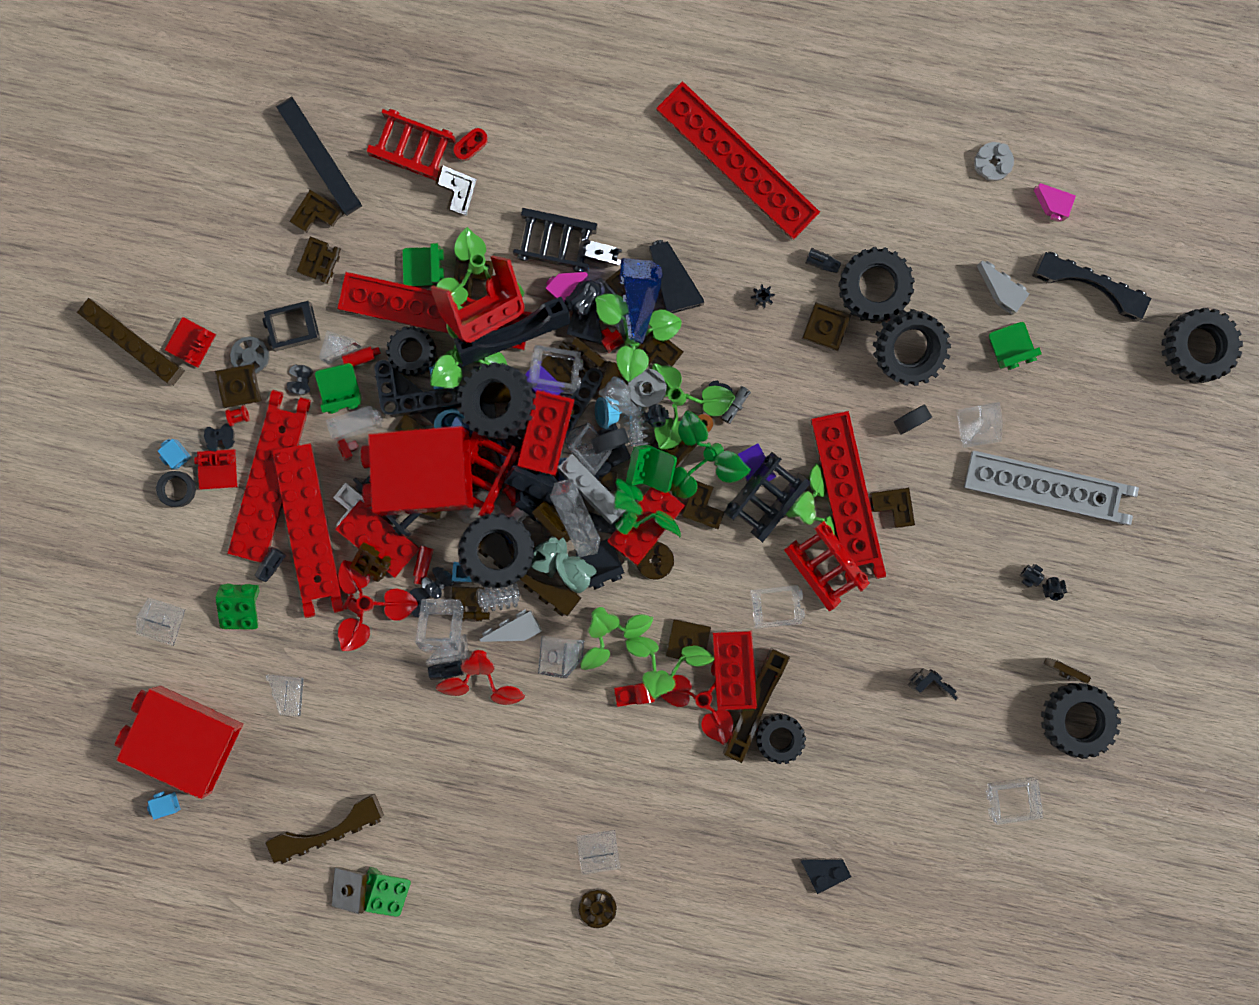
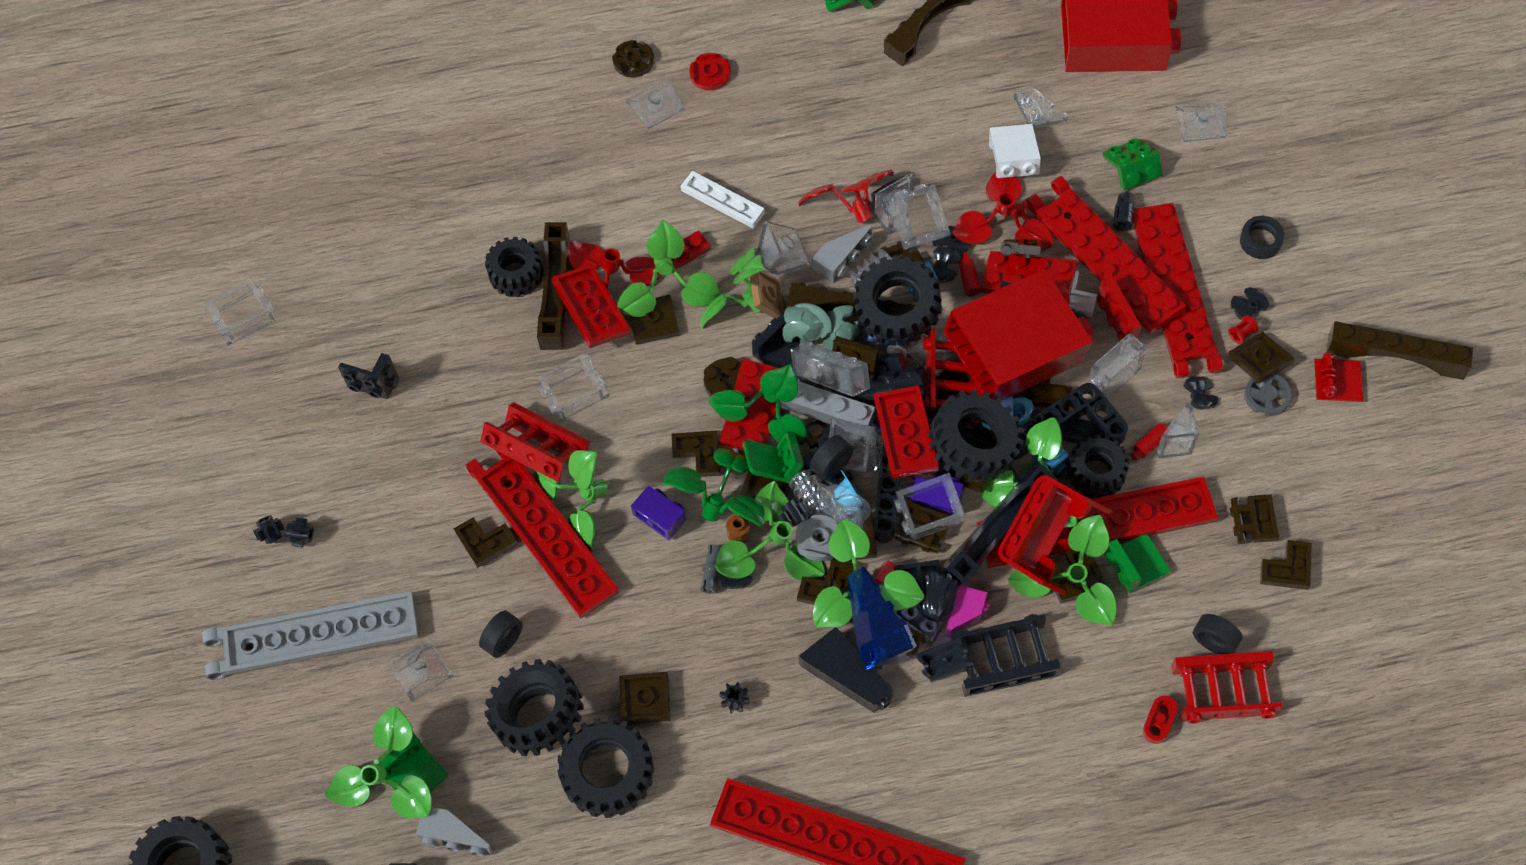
camera: 160 degrees right, 25 degrees down
(173, 453) = (1285, 267): dark azure brick -> none
(217, 469) = (1233, 273): red hinge -> none
(311, 323) = (1227, 454): black window -> none
(319, 156) = (1323, 629): black beam -> none
(327, 470) = (1117, 308): none -> red plate
(328, 658) = (1015, 150): none -> white panel
(338, 388) = (1151, 396): green bracket -> none
(346, 448) = (1108, 342): red tile -> none
(398, 181) = (1217, 634): none -> black tyre
(461, 187) = (1143, 663): plate -> none
(538, 863) = (710, 71): none -> red tile
(584, 616) = (767, 294): none -> medium nougat tile
(585, 727) = (722, 199): none -> white plate
(593, 357) = (893, 546): dark brown plate -> none
(779, 508) = (616, 473): black fence -> none
(825, 872) = (415, 175): black wing -> none
(829, 263) = (681, 769): black hinge -> none
(1061, 357) = (351, 782): none -> bright green plant
(1066, 671) = (226, 449): dark brown plate -> none
(1105, 725) = (179, 390): black tyre -> none

